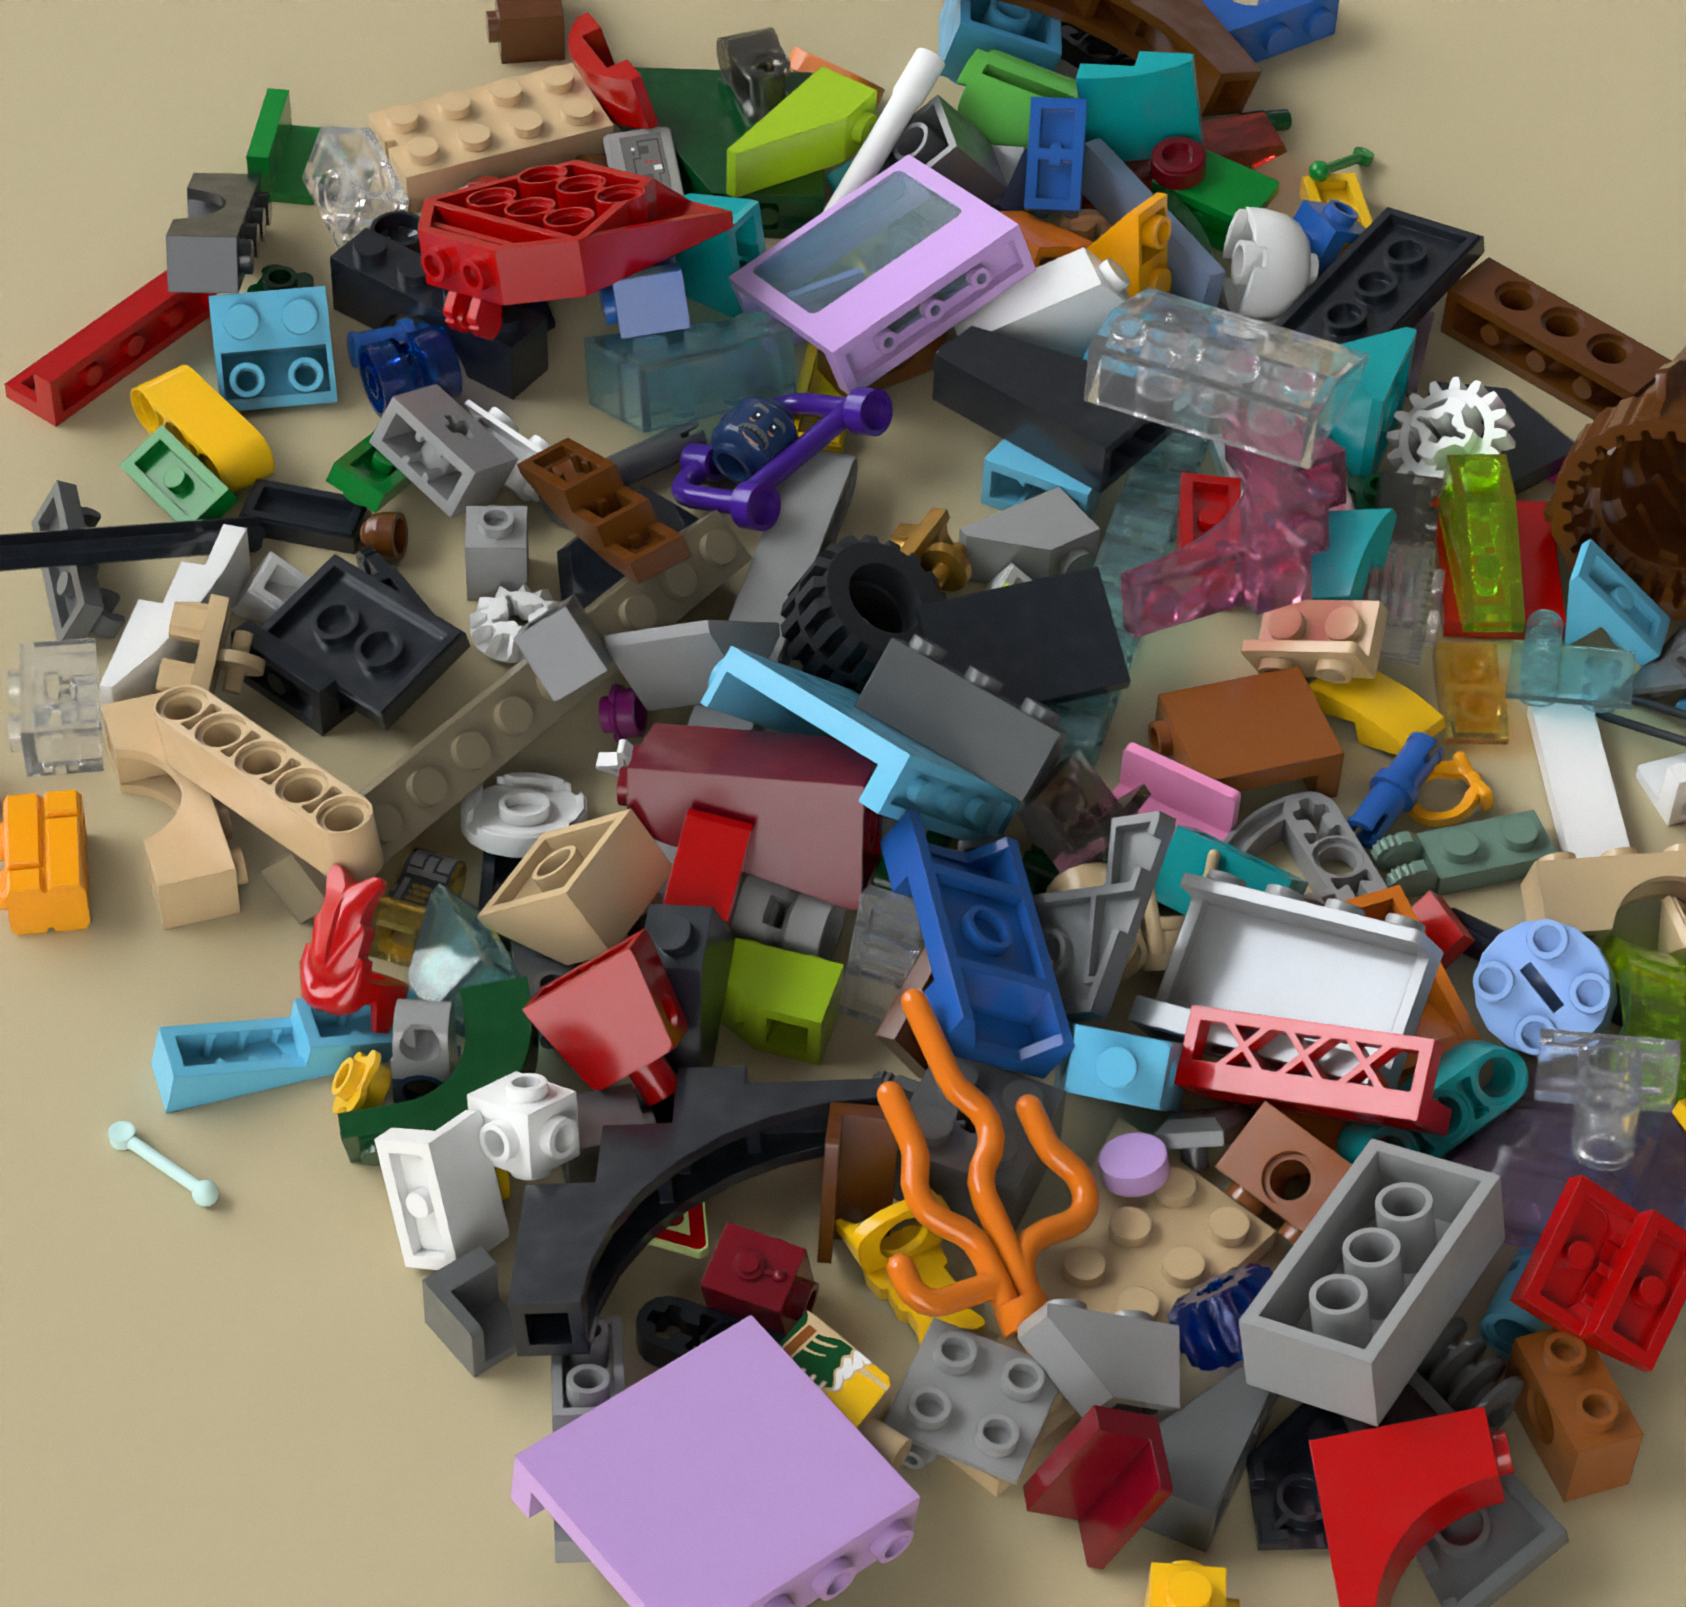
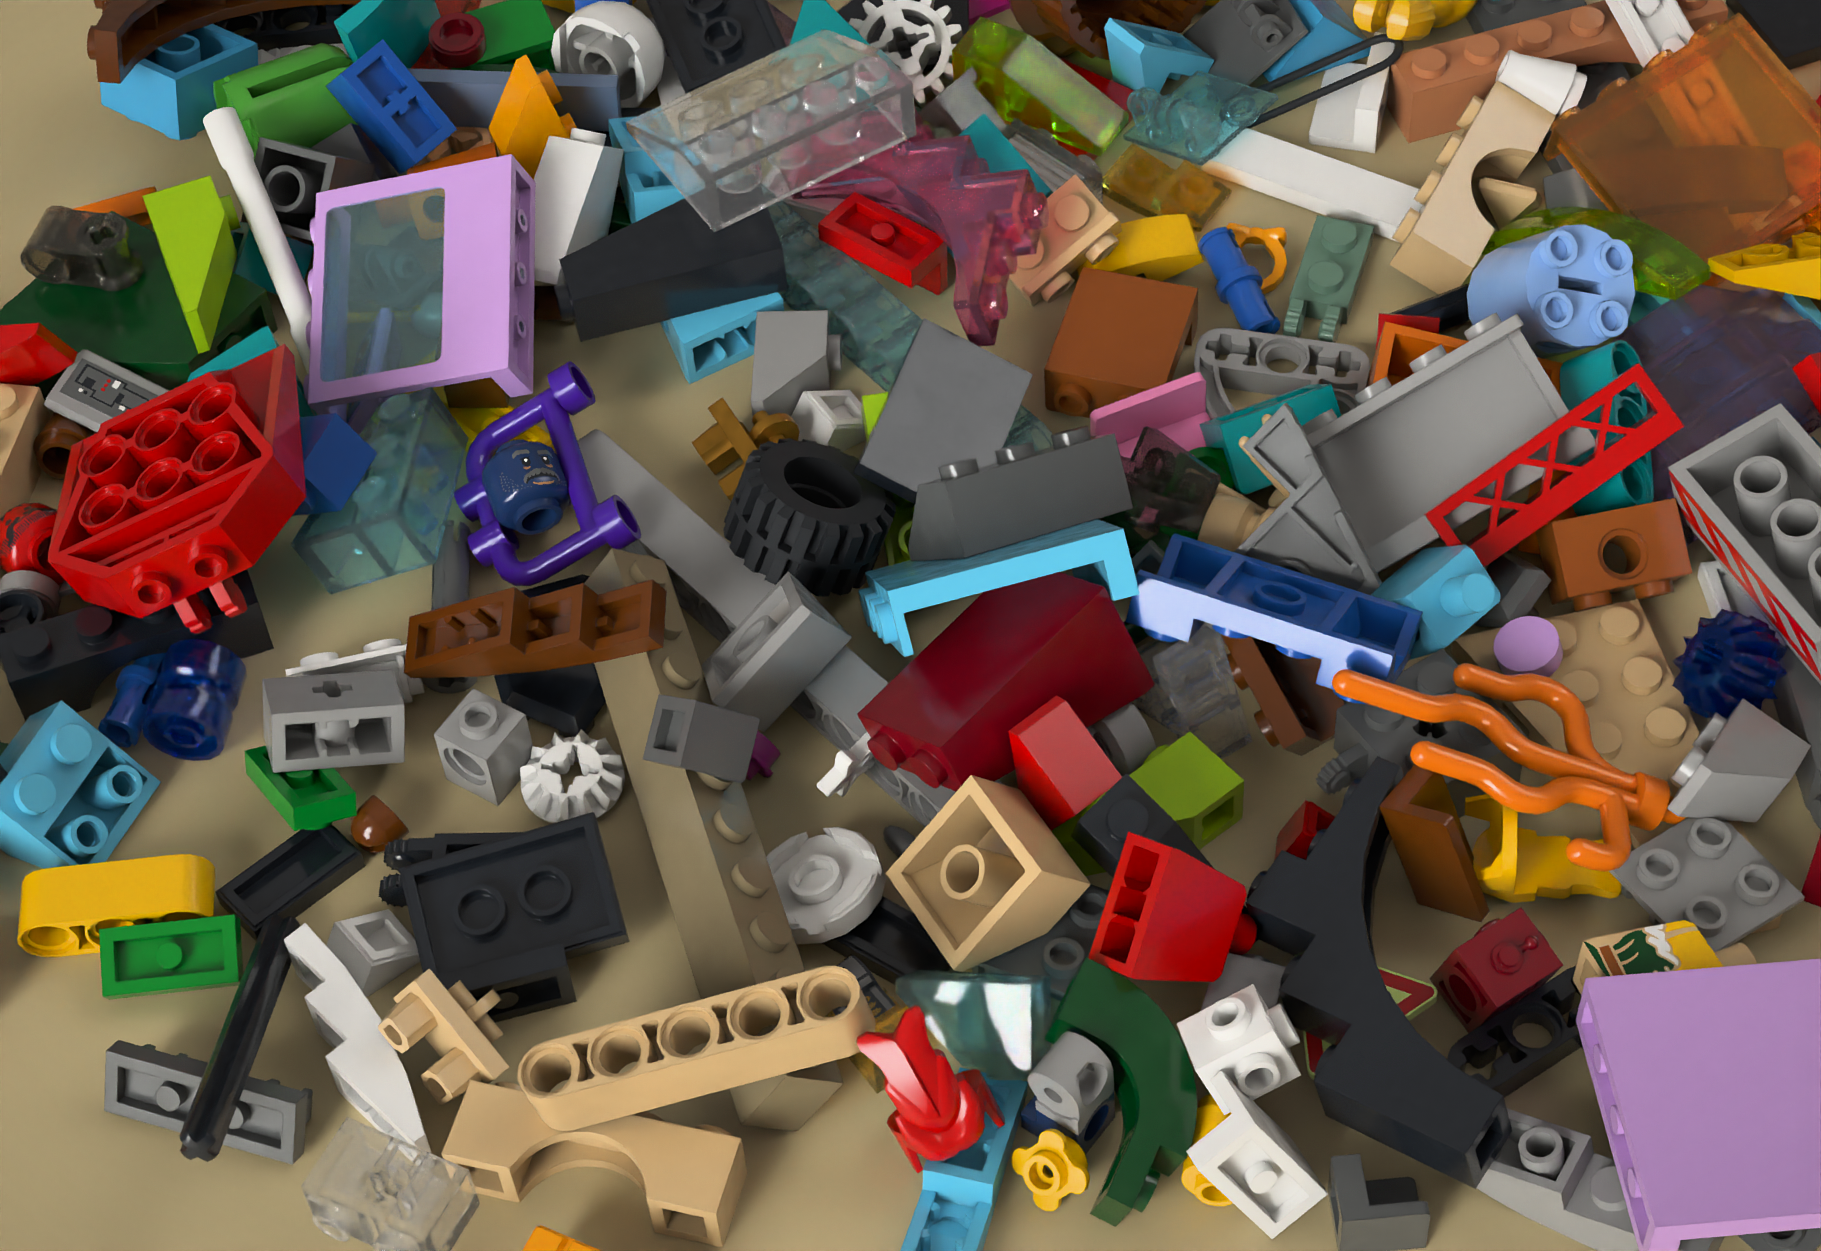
camera: 50 degrees left, 5 degrees up
(1608, 1085) = (1703, 307): clear tile -> none

